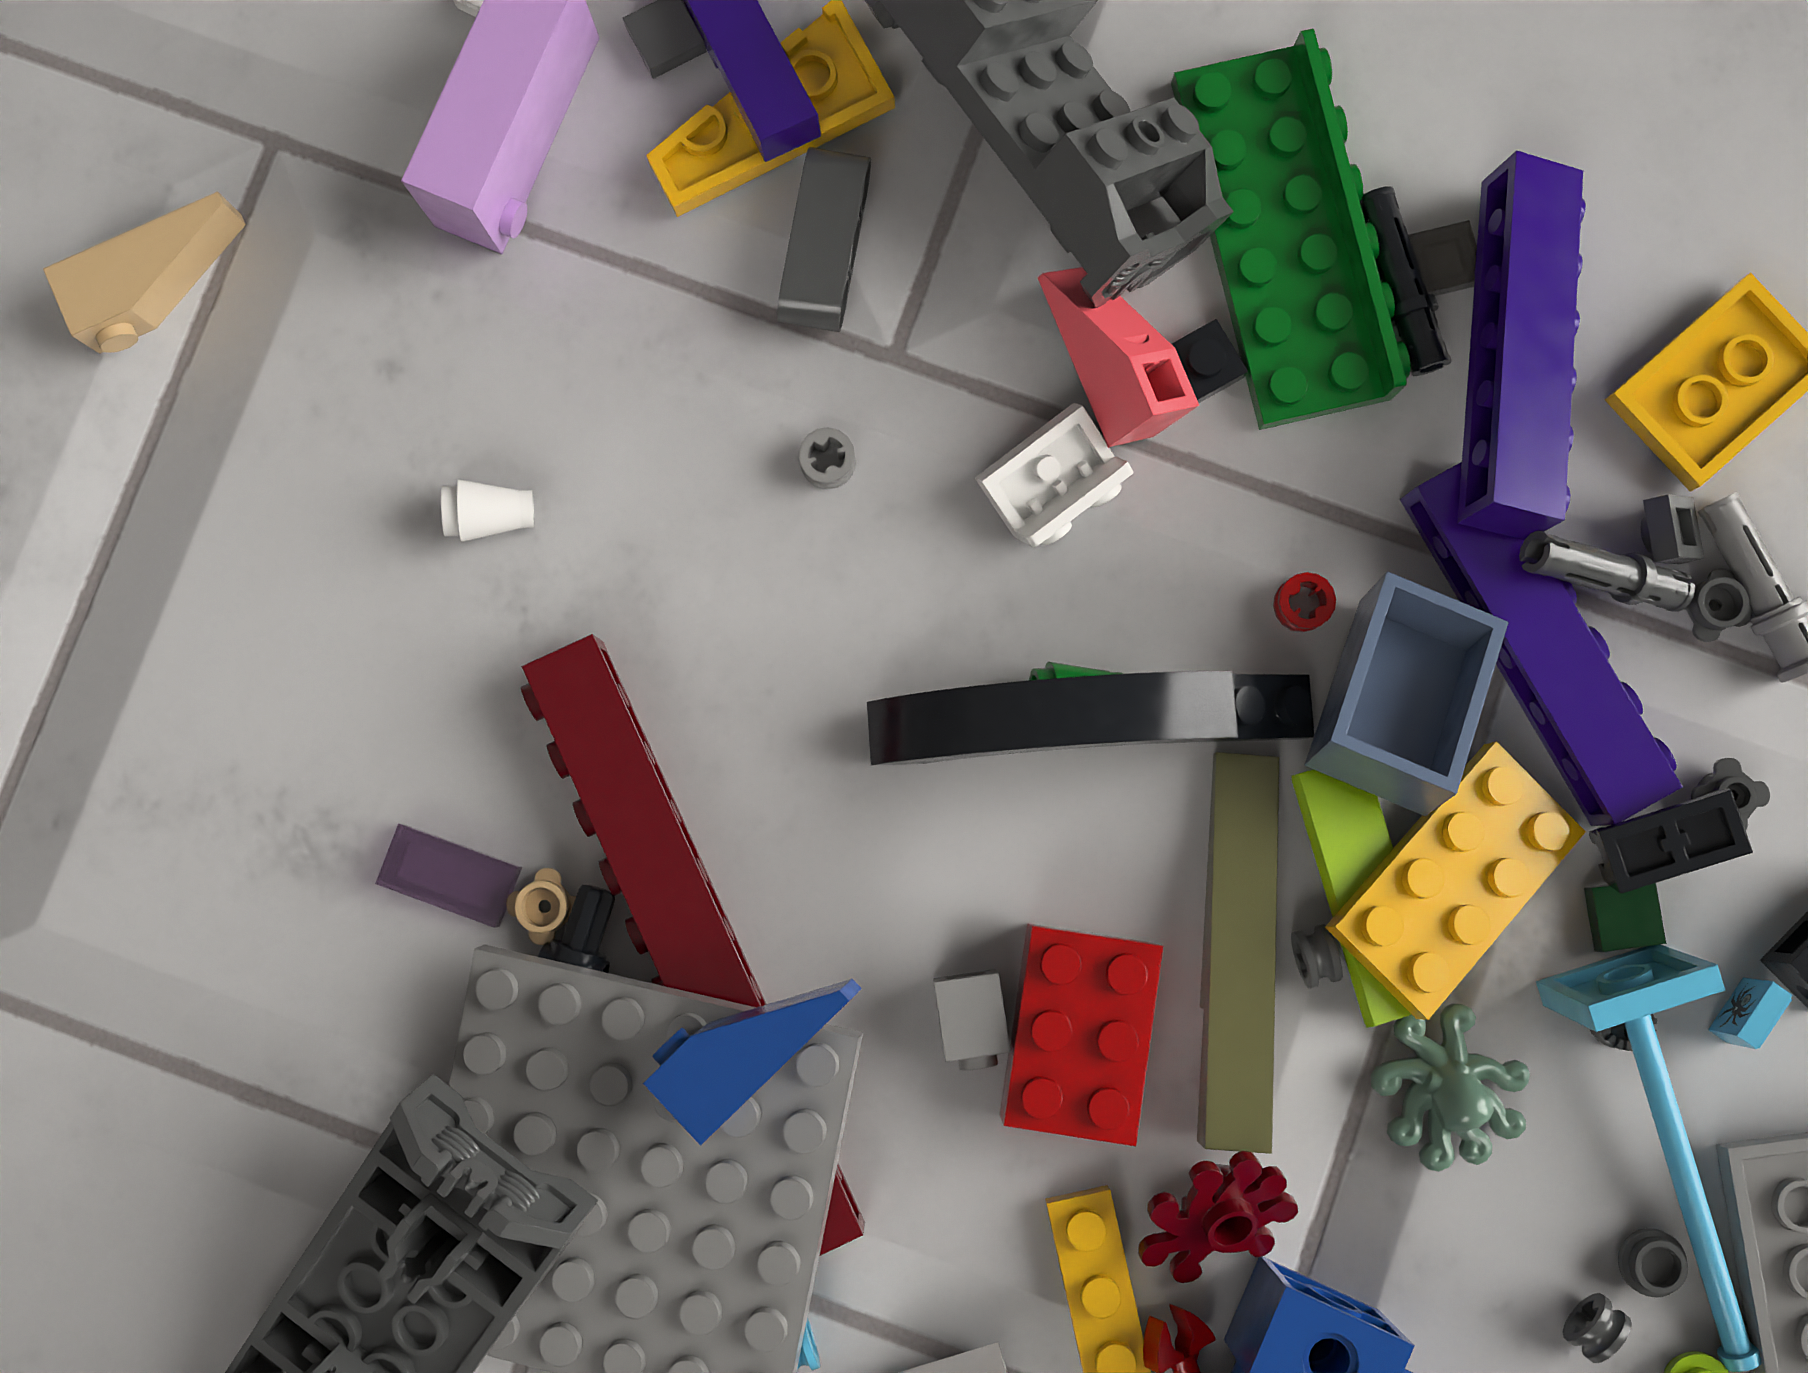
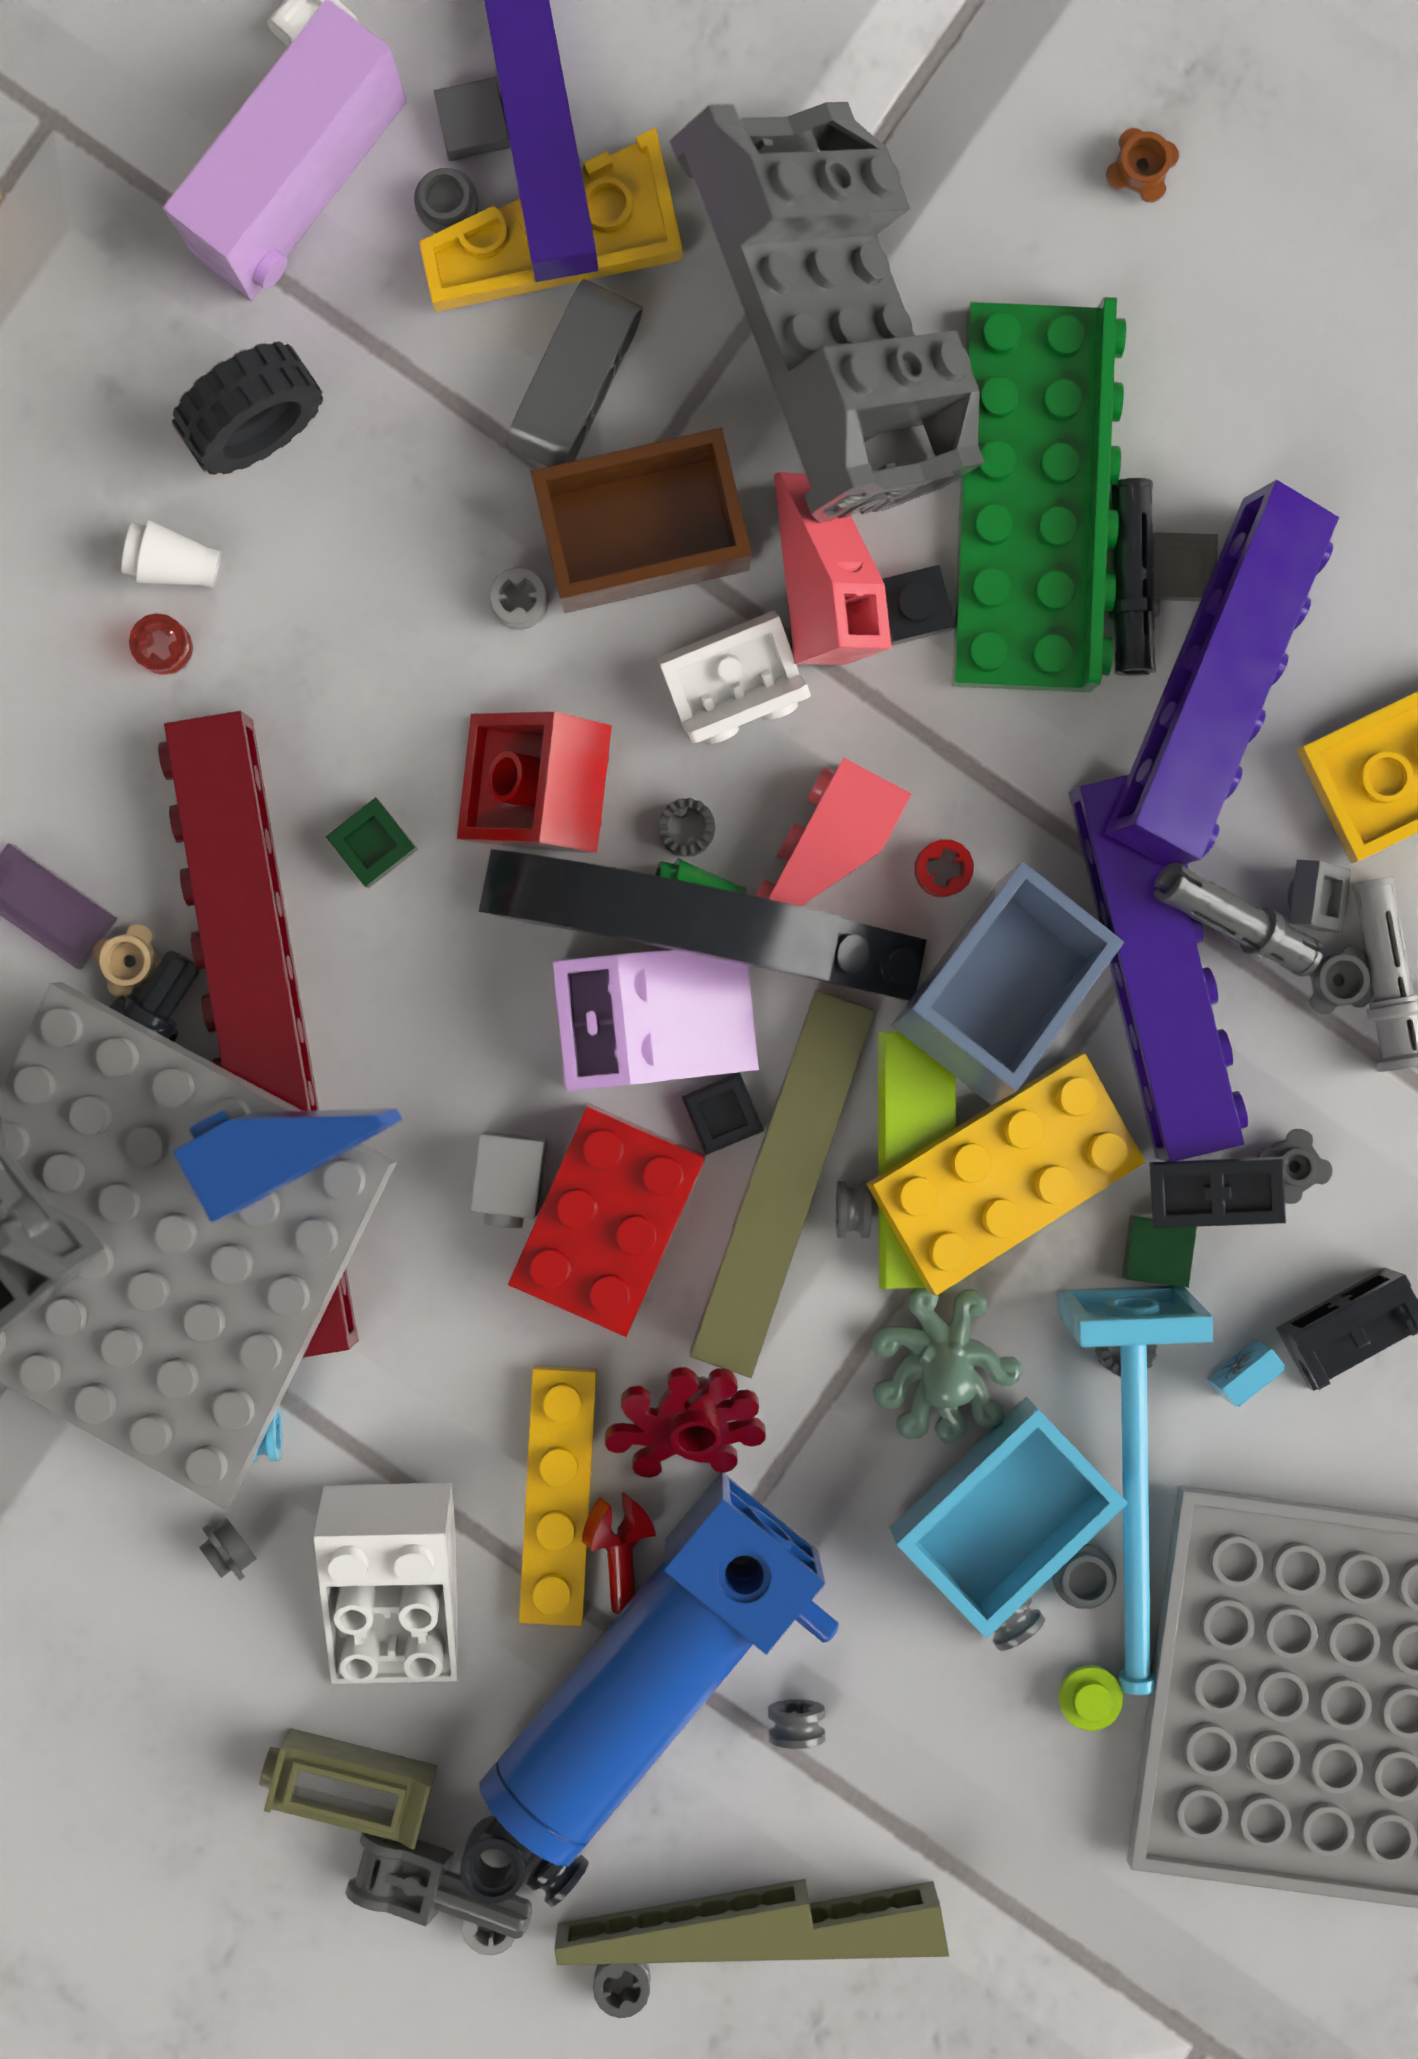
camera: 15 degrees right, 5 degrees up
(478, 594) = (142, 638): none -> clear red bush
(525, 347) = (247, 407): none -> black tyre
(658, 111) = (445, 198): none -> dark grey plate
(749, 727) = (371, 843): none -> dark green plate
(890, 625) = (534, 781): none -> red slope
(927, 351) = (642, 520): none -> reddish brown piece
(1034, 616) = (680, 809): none -> dark grey bush
(1069, 823) = (652, 1018): none -> lavender slope
(1160, 897) = (722, 1113): none -> black tile
(1201, 590) = (845, 831): none -> coral slope
(1564, 1224) = (1006, 1517): none -> medium azure piece

